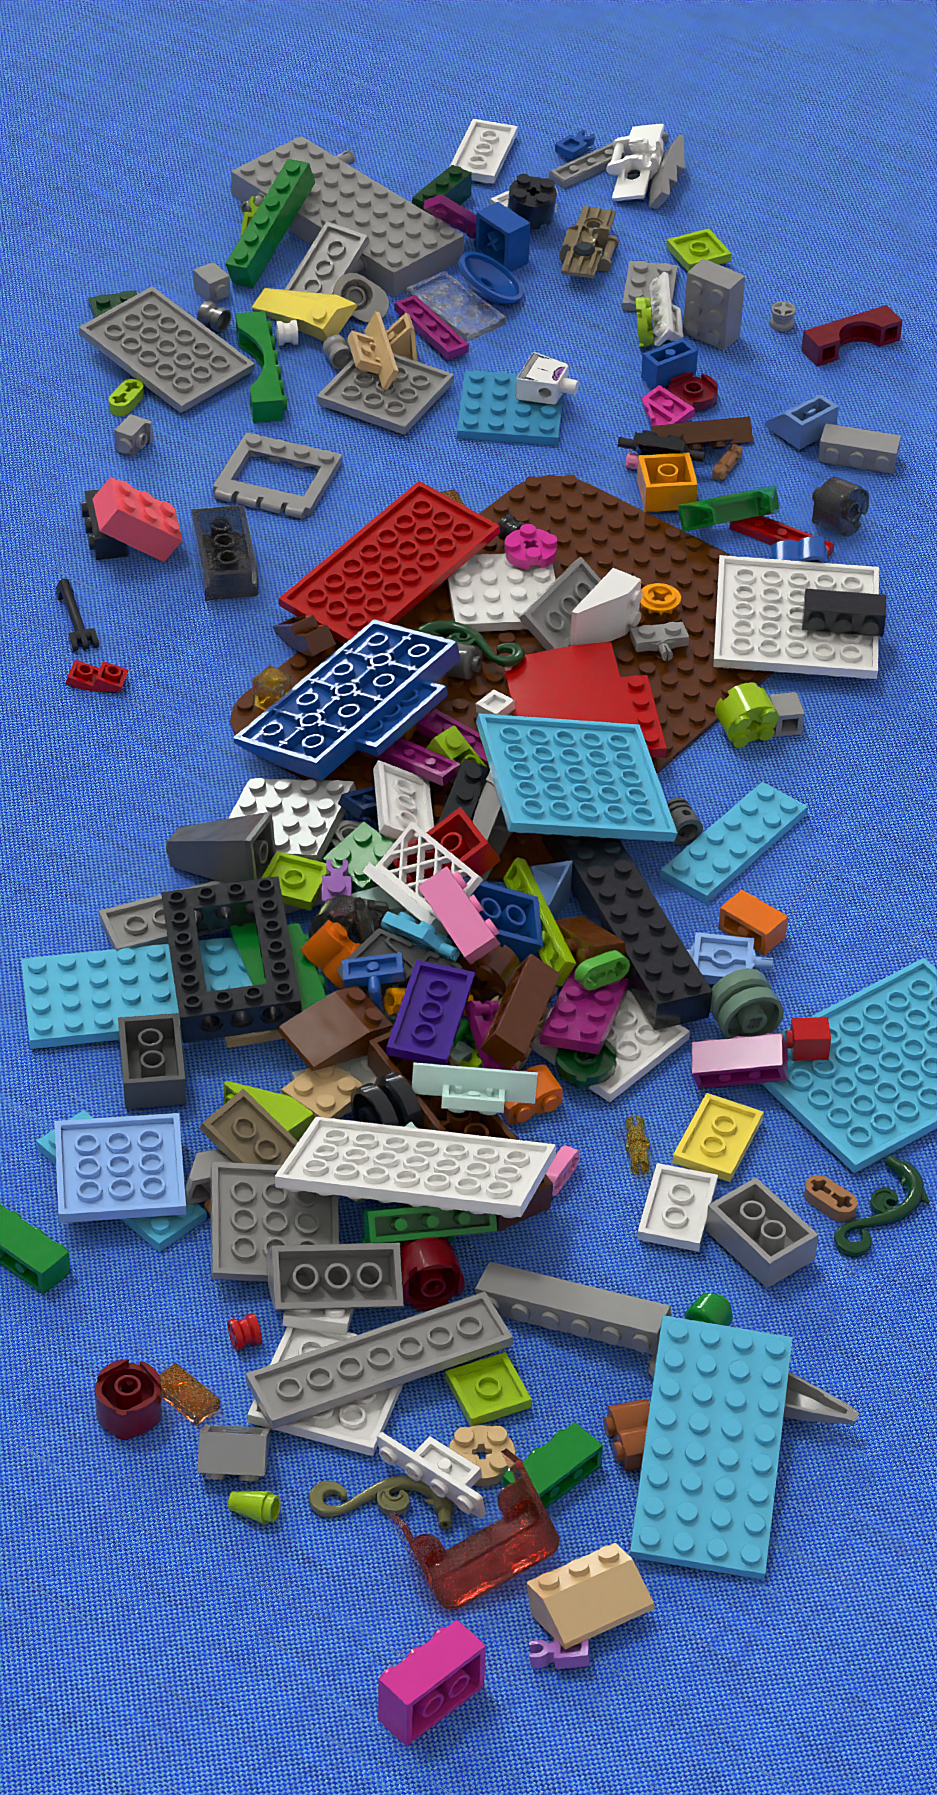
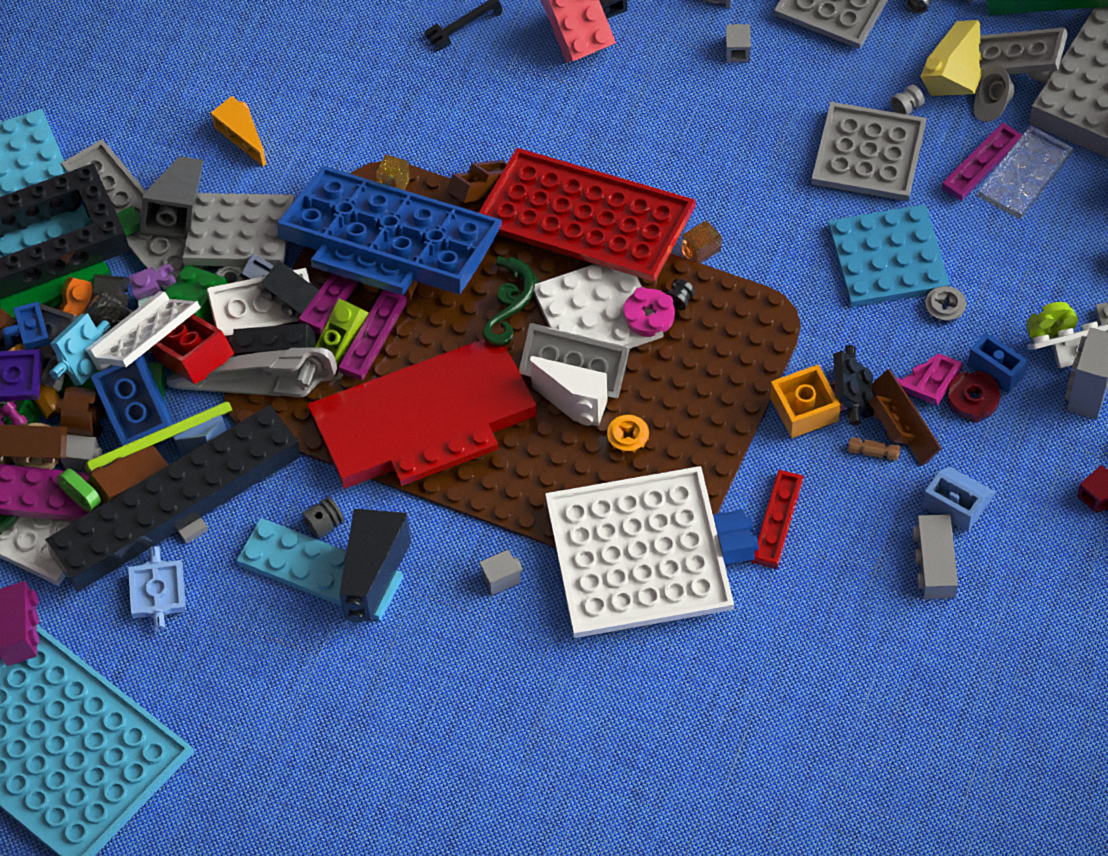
camera: 80 degrees right, 15 degrees up
(103, 679) = (393, 58): red slope -> none
(142, 800) = (235, 123): none -> light orange slope
(209, 437) = (738, 43): none -> light grey brick
(224, 553) = (572, 95): clear smoke brick -> none
(267, 392) = (817, 66): green arch -> none
(277, 451) = (745, 107): light grey hinge -> none
(287, 332) = (918, 54): white wheel -> none
(298, 878) = (158, 248): lime plate -> none
(373, 351) = (900, 118): tan bracket -> none
(402, 338) = (939, 145): tan slope -> none
(406, 772) = (287, 290): none -> black brick
(460, 914) = (85, 362): bright pink brick -> none
(468, 665) = (480, 300): dark grey head -> none
(489, 278) = (1083, 180): blue dish -> none
(496, 704) = (428, 341): white plate -> none
(544, 380) = (915, 264): white torso -> none
(575, 778) = (305, 411): medium azure plate -> none
(594, 383) = (936, 299): none -> light grey gear
(660, 638) = (571, 447): light grey plate -> none
(729, 508) = (798, 483): green hose -> none
(745, 1004) = (77, 614): sand green wheel -> none
(747, 714) = (475, 537): lime brick -> none
(752, 918) = (208, 602): orange brick -> none
(765, 777) = (372, 558): none -> black slope
(809, 1038) = (50, 670): red brick -> none
(839, 506) = (821, 553): clear smoke brick -> none
(844, 612) = (634, 583): black brick -> none

